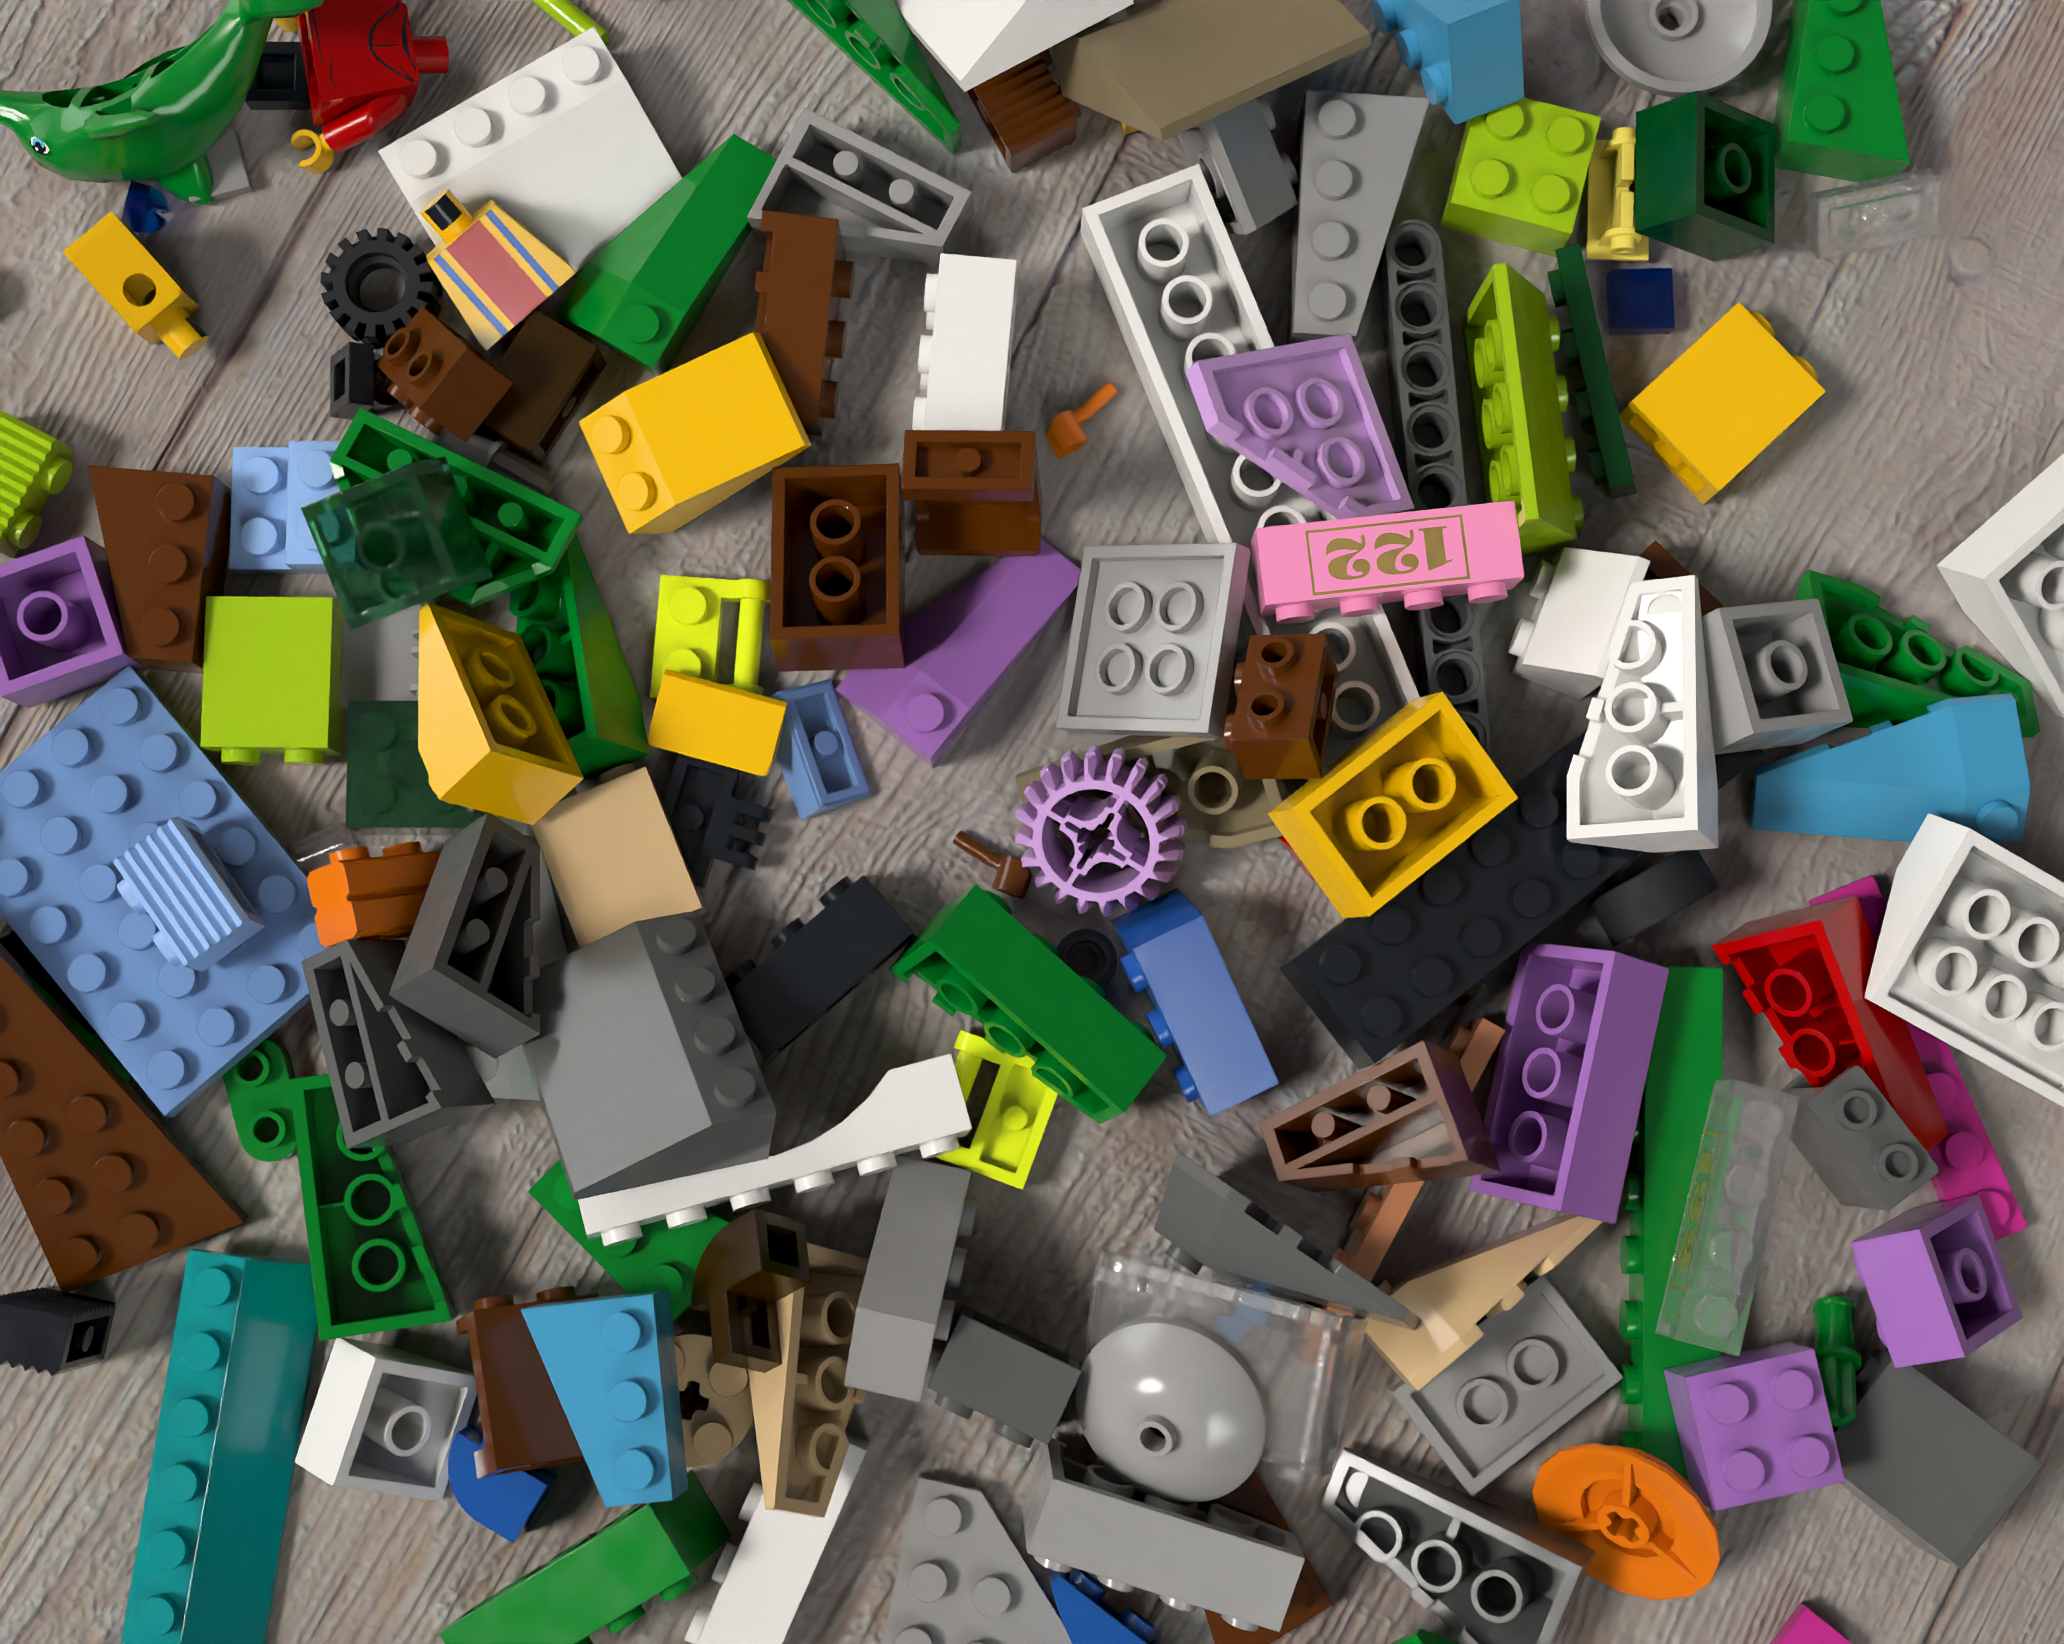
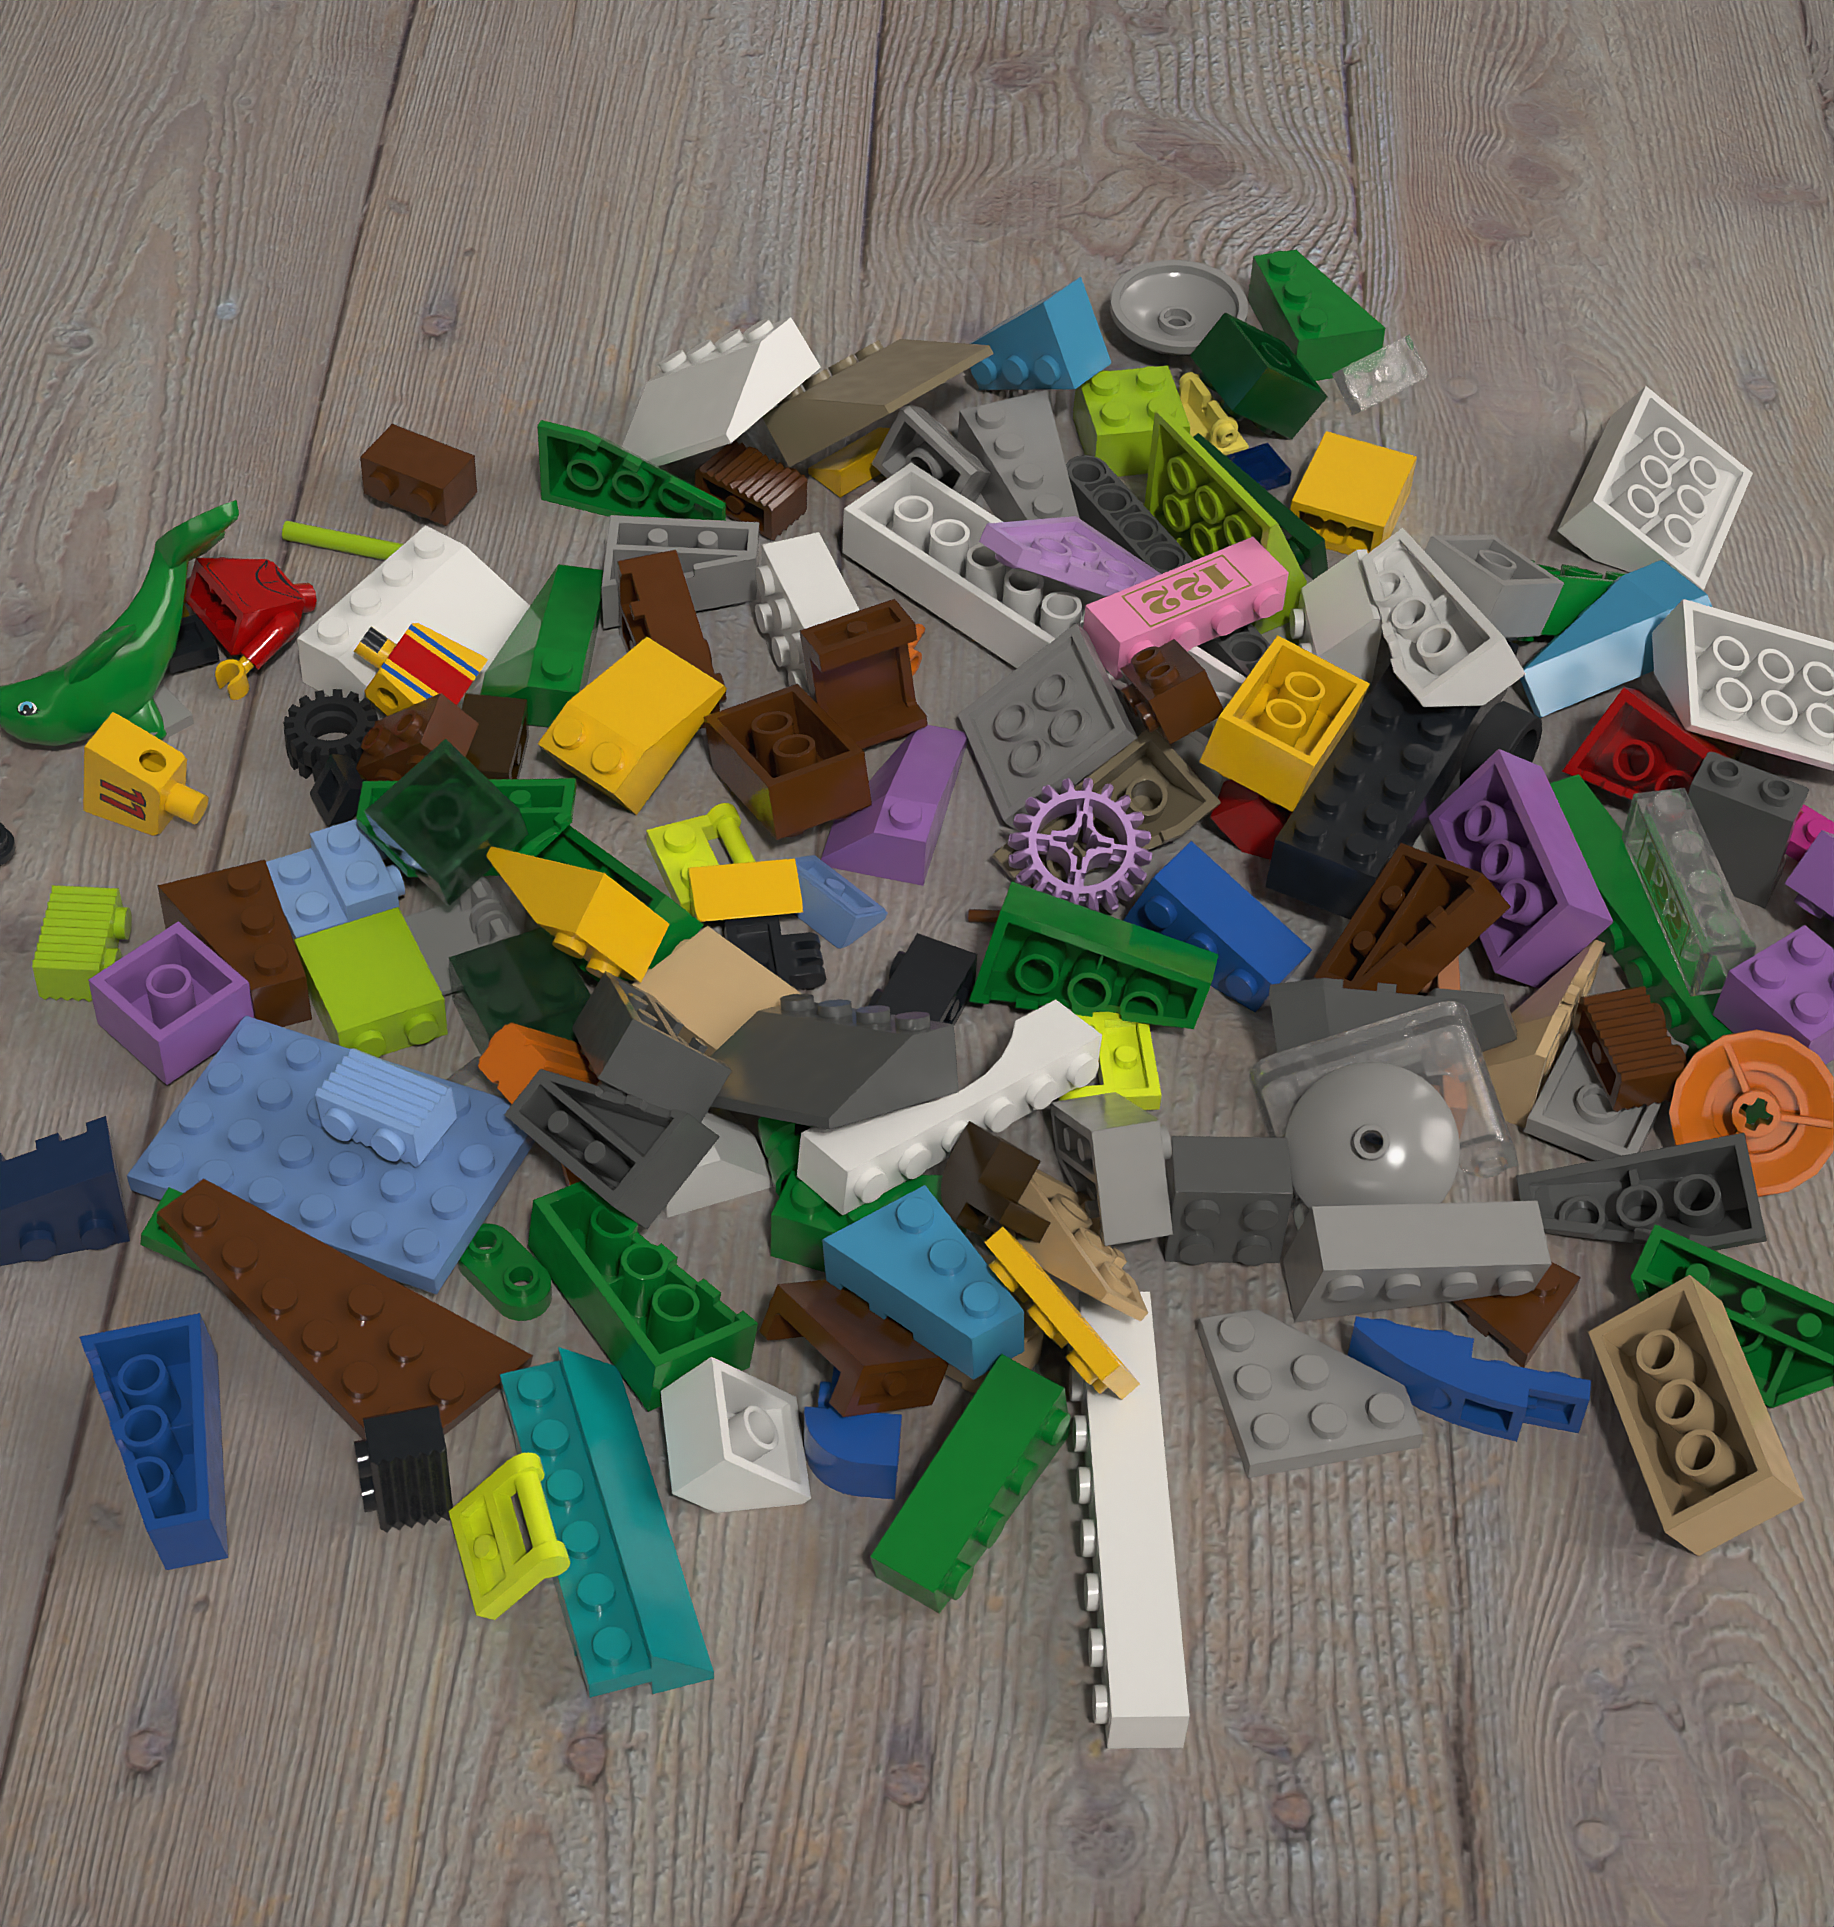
camera: 25 degrees left, 35 degrees down
(118, 1441) = (491, 1539): none -> neon yellow plate
(719, 1501) = (1058, 1316): none -> yellow plate
(1545, 1375) = (1629, 1047): none -> reddish brown brick

